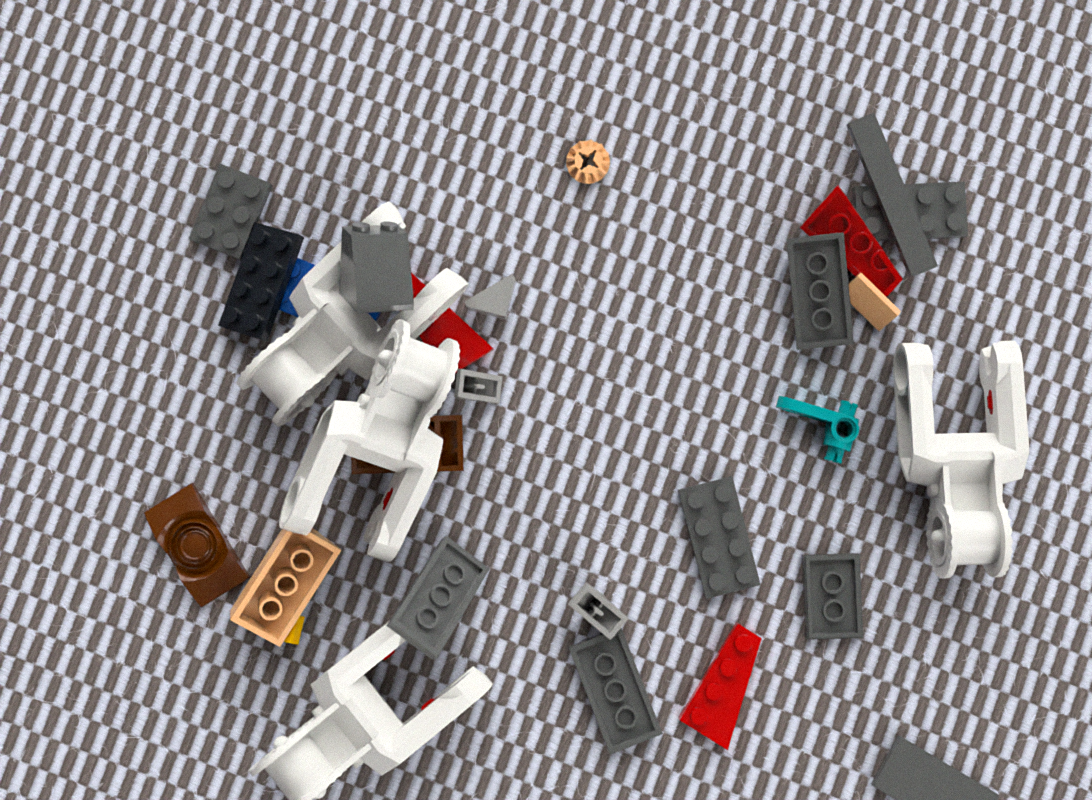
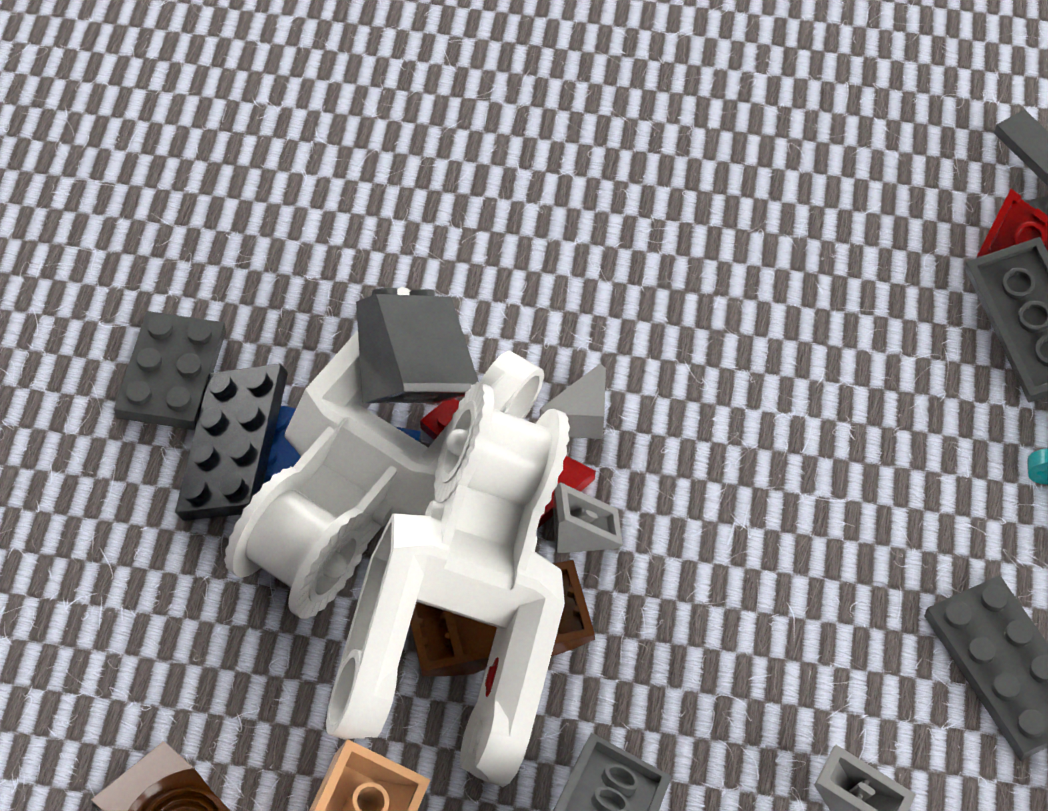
camera: 15 degrees left, 30 degrees down
(588, 174) = (671, 243): light nougat gear -> none

